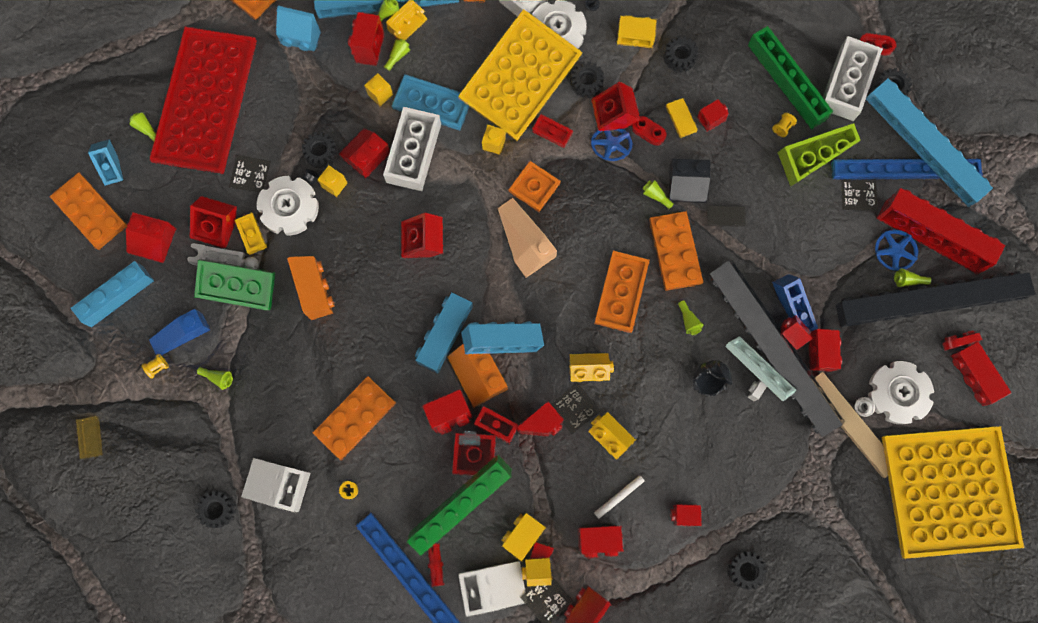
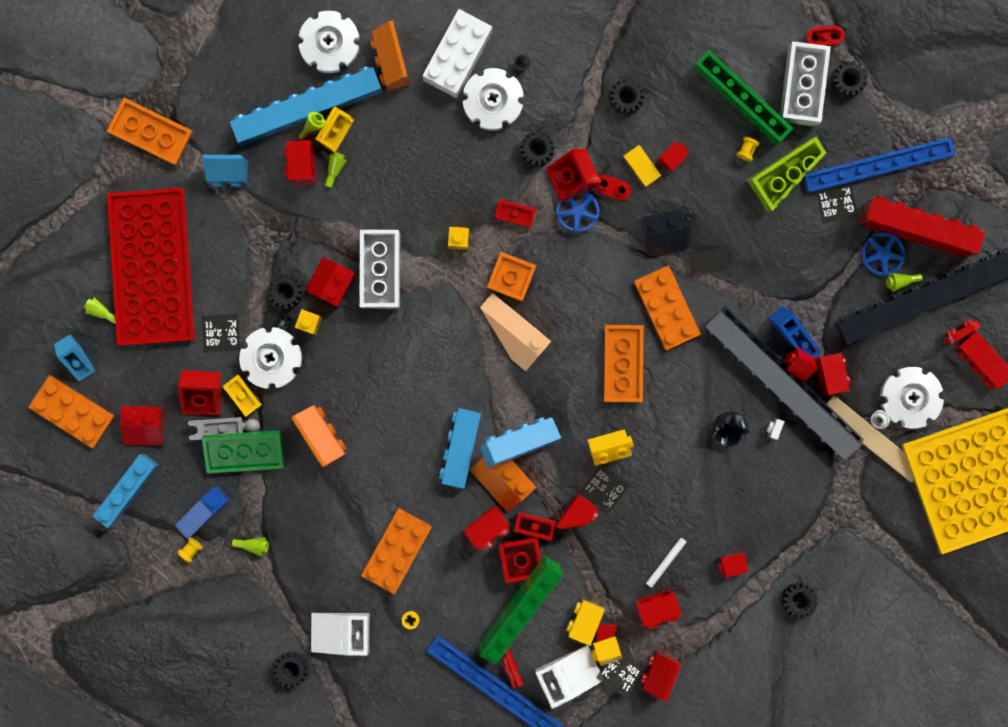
camera: 15 degrees left, 10 degrees up
(89, 437) = (148, 633): clear yellow tile -> none
(378, 89) = (327, 213): yellow brick -> none
(422, 236) = (413, 357): red slope -> none
(432, 99) = (384, 211): dark azure tile -> none
(469, 438) = (514, 548): clear light blue plate -> none
(520, 75) = (468, 163): yellow plate -> none
(611, 435) = (645, 507): yellow brick -> none
(636, 31) = (575, 83): yellow brick -> none
(654, 191) = (631, 252): lime cone -> none
(691, 322) = (697, 377): lime cone -> none
(761, 368) = (773, 408): light aqua tile -> none
(929, 143) = (894, 136): dark azure brick -> none

